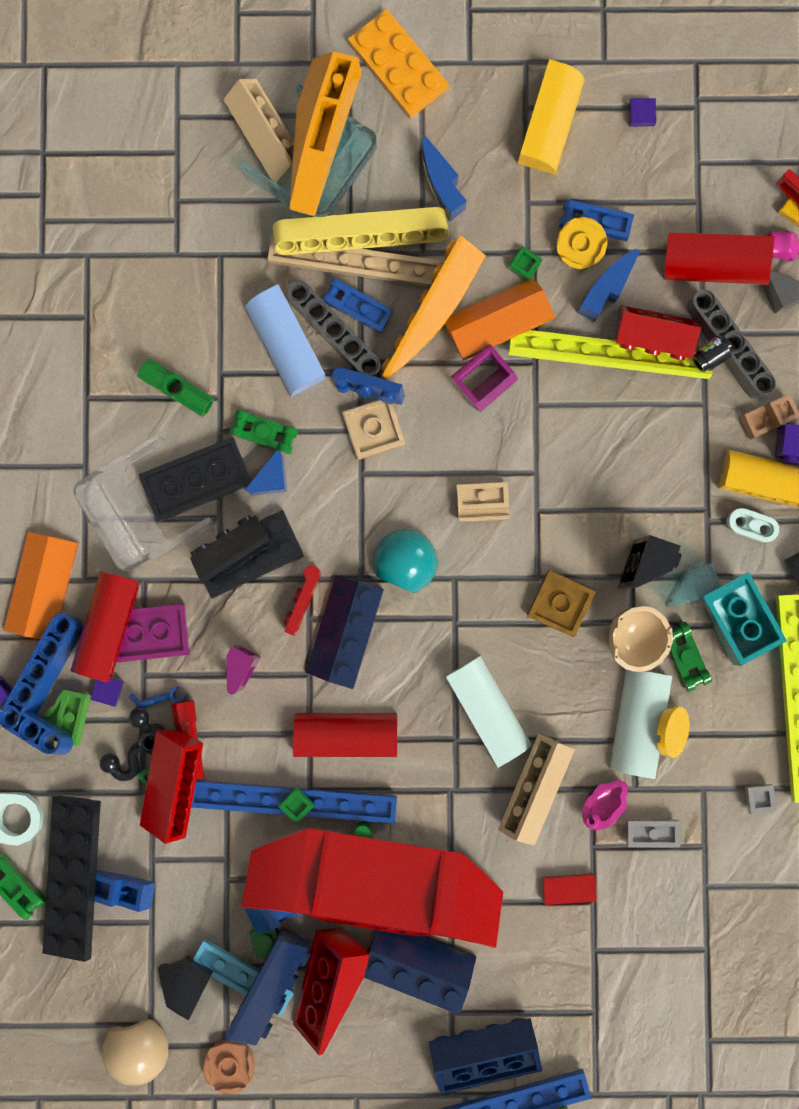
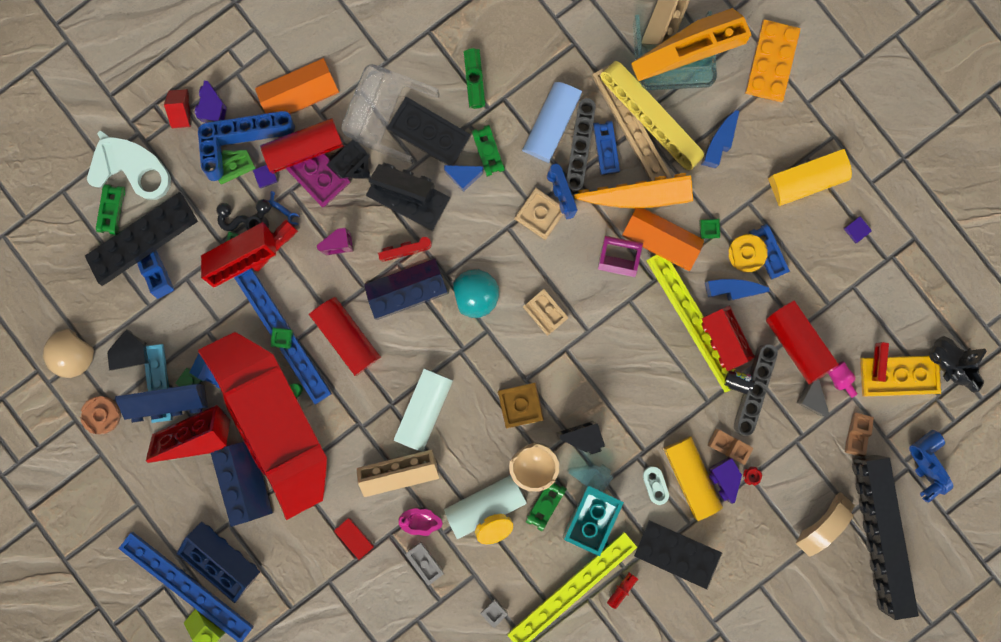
camera: 55 degrees right, 0 degrees up
(163, 587) = (351, 162): none -> black slope

